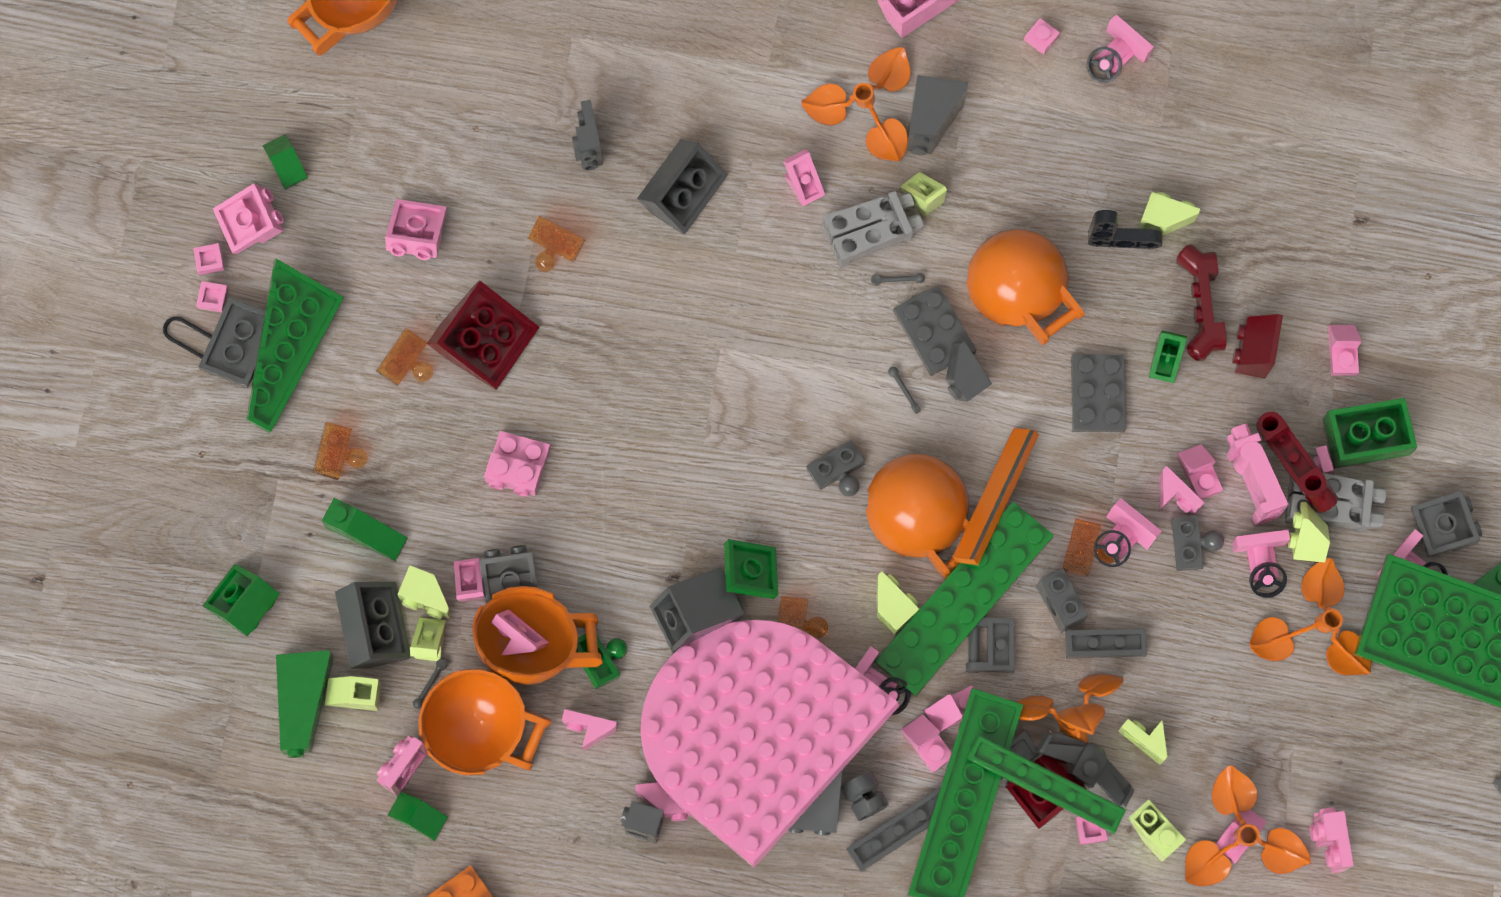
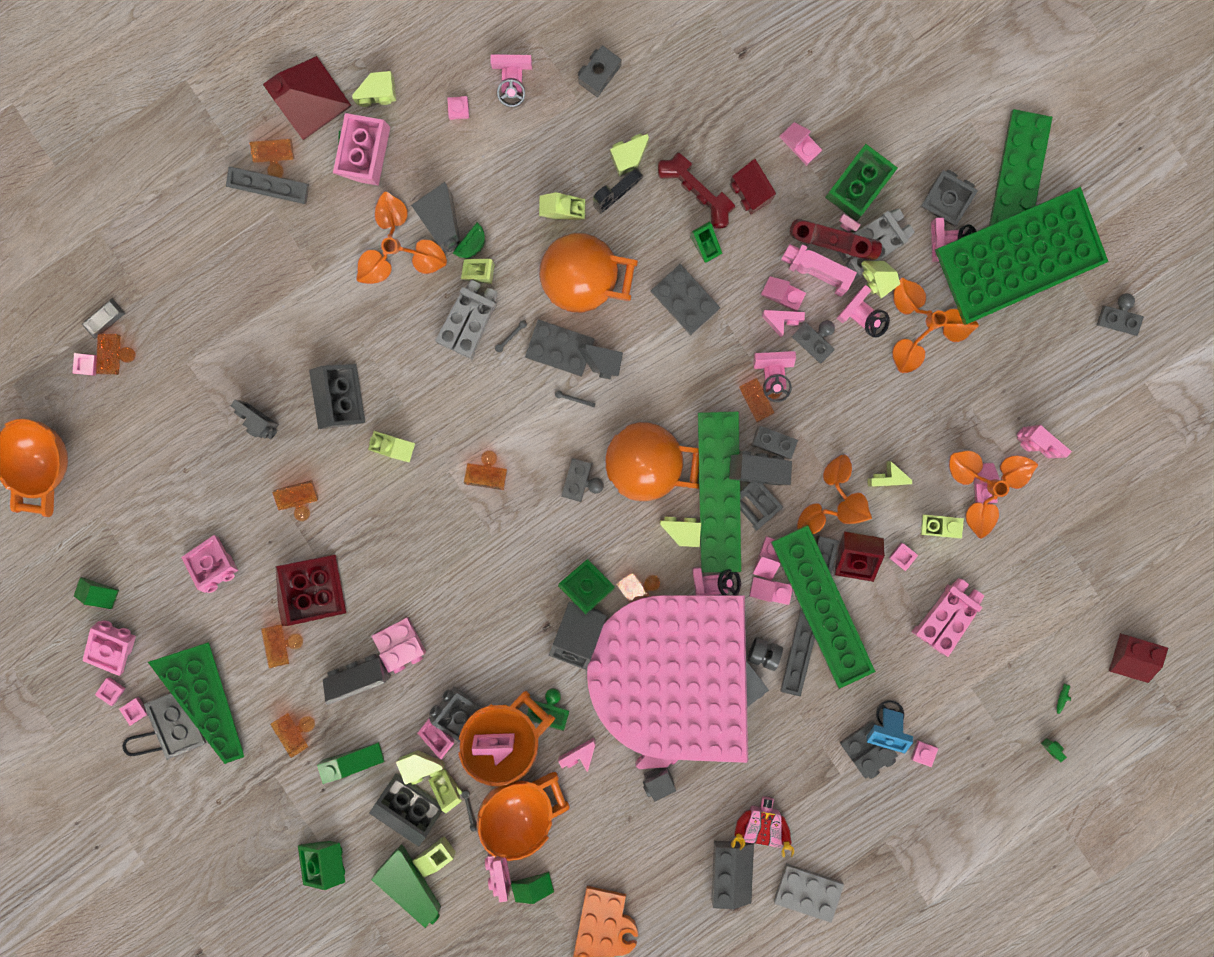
camera: 35 degrees left, 15 degrees up
(447, 454) = (354, 679): none -> dark grey slope
(689, 275) = (391, 446): none -> yellowish green slope
(754, 382) = (486, 475): none -> clear orange plate
(803, 177) = (401, 326): bright pink slope -> none
(940, 163) = (472, 243): none -> green plate
(995, 496) = (684, 417): orange tile -> none
(1025, 609) = (760, 469): none -> dark grey brick
(1046, 784) = (863, 560): green tile -> none
(1057, 204) = (561, 206): none -> yellowish green slope
(1088, 765) = (874, 527): dark grey plate -> none
(1106, 643) = (819, 443): dark grey plate -> none
(1195, 126) = (595, 82): none -> dark grey brick

